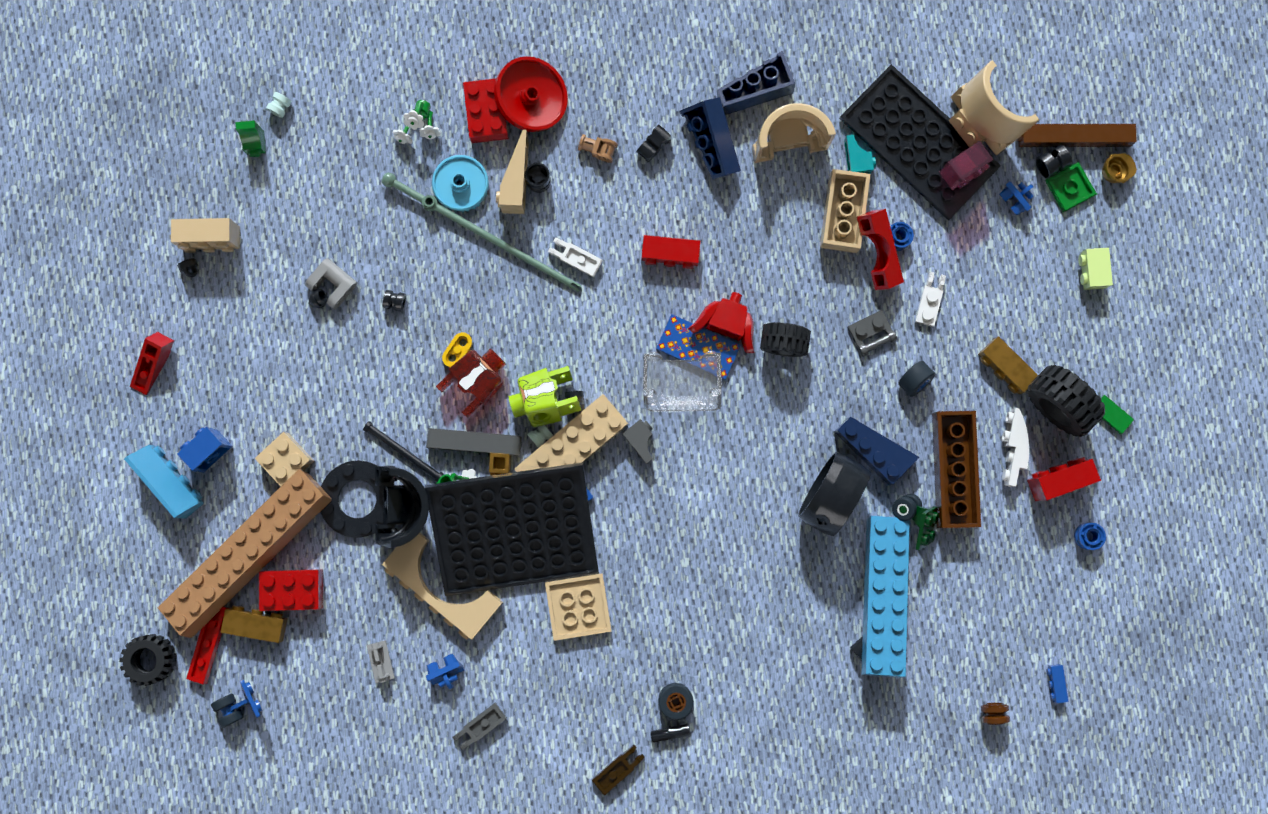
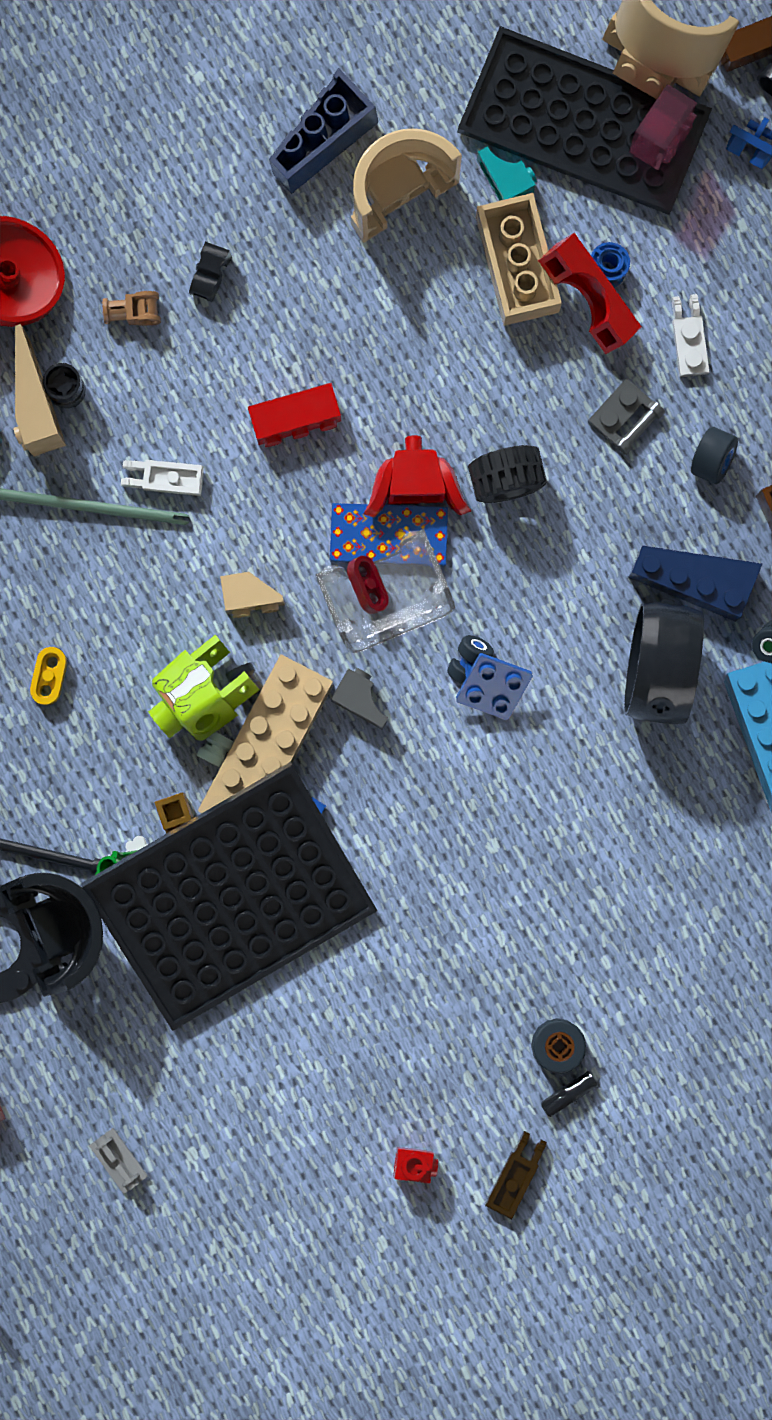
camera: 15 degrees left, 0 degrees up
(445, 675) = (219, 1140): blue hips -> none
(467, 617) = (219, 1047): tan arch -> none
(473, 441) = (123, 796): dark grey beam -> none
(476, 376) = (89, 702): clear red piece -> none
(481, 725) = (298, 1191): dark grey hinge -> none
(558, 738) = (414, 1165): none -> red brick
(578, 606) = (367, 969): tan plate -> none
(598, 348) = (246, 593): none -> tan slope
(673, 372) = (367, 585): none -> dark red plate
(712, 137) = (298, 233): dark blue wedge -> none
(721, 460) = (485, 680): none -> blue plate

